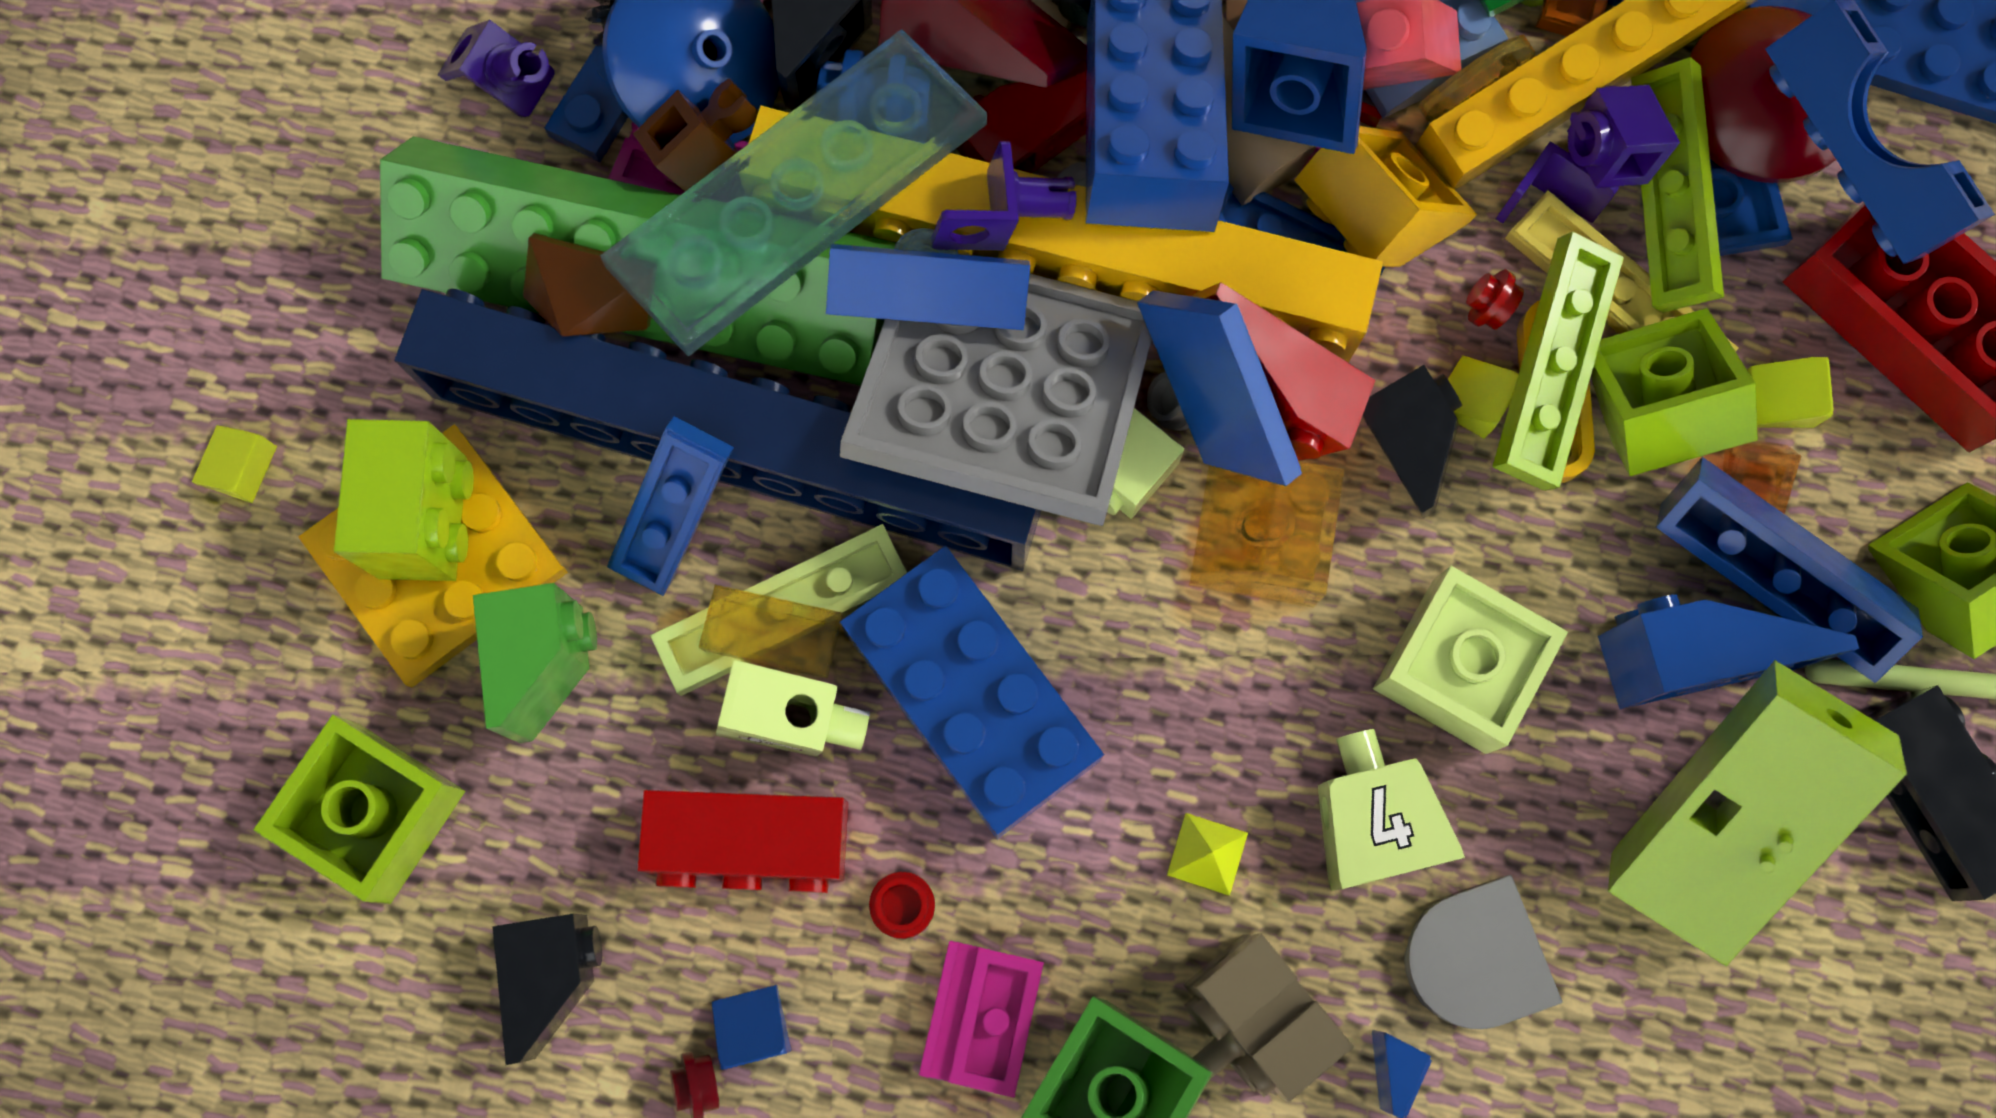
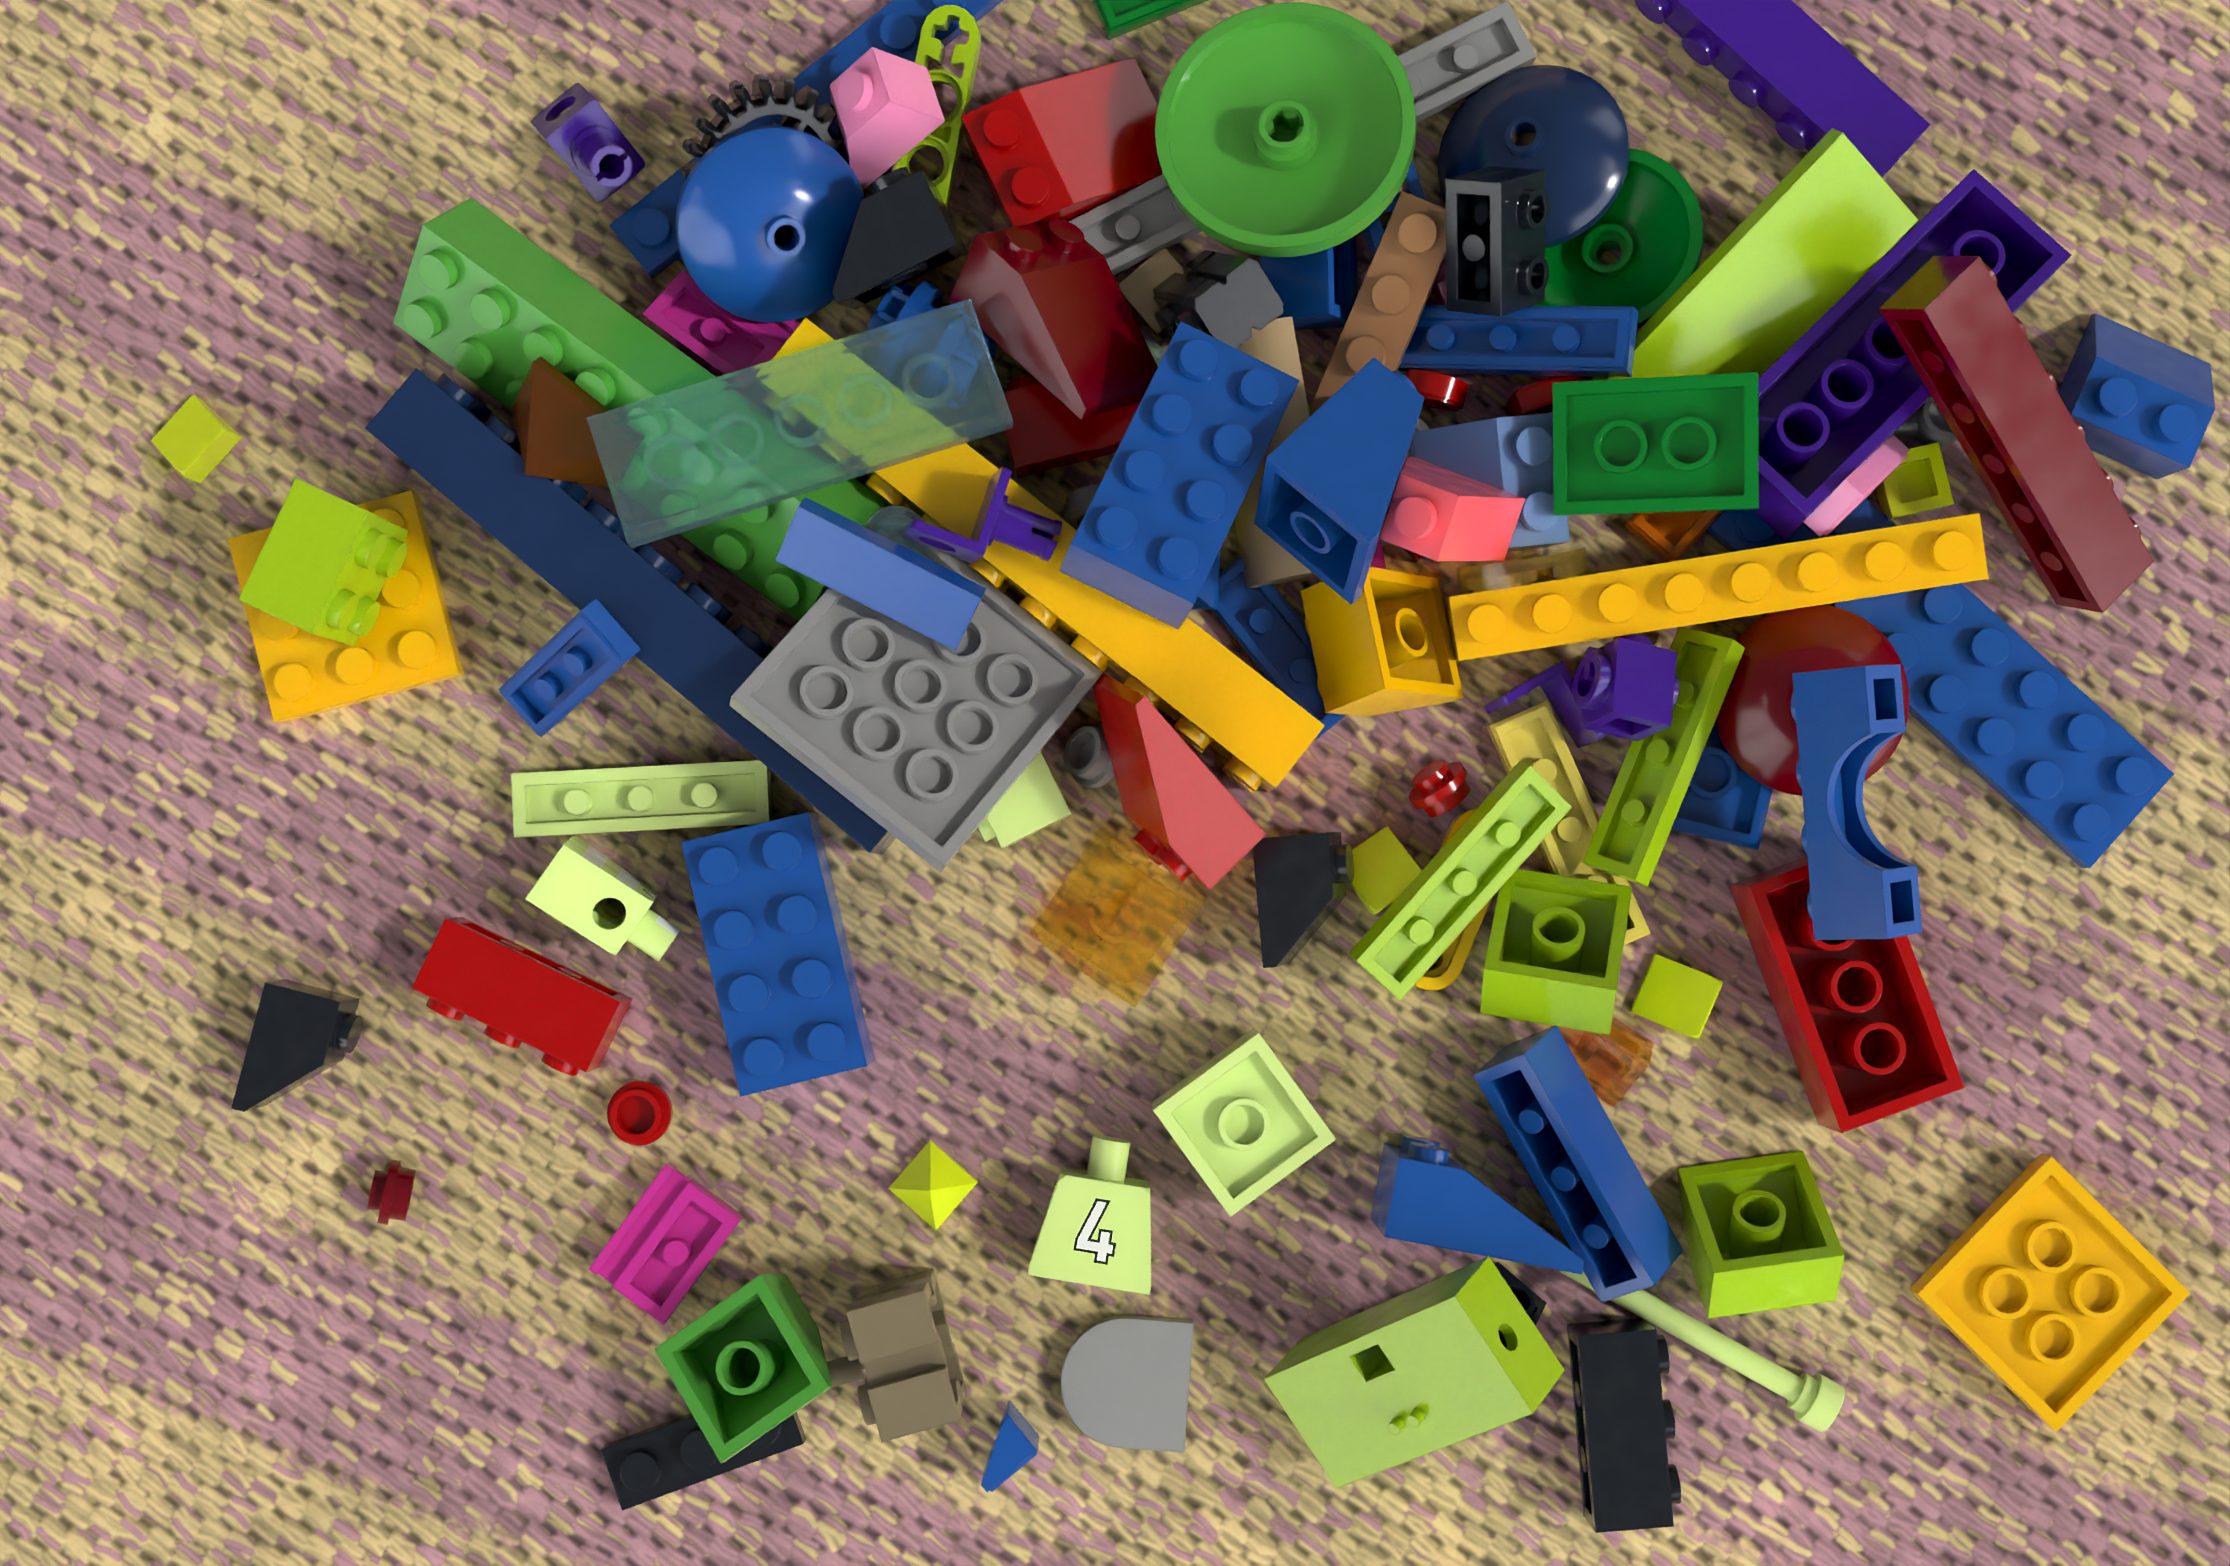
camera: 25 degrees right, 10 degrees up
(359, 811) = (188, 825): lime brick -> none
(530, 655) = (389, 753): bright green slope -> none
(694, 142) = (731, 323): reddish brown brick -> none
(750, 1027) = (461, 1163): blue slope -> none
(771, 631) = (619, 819): clear yellow tile -> none
(1220, 385) = (1117, 779): blue tile -> none

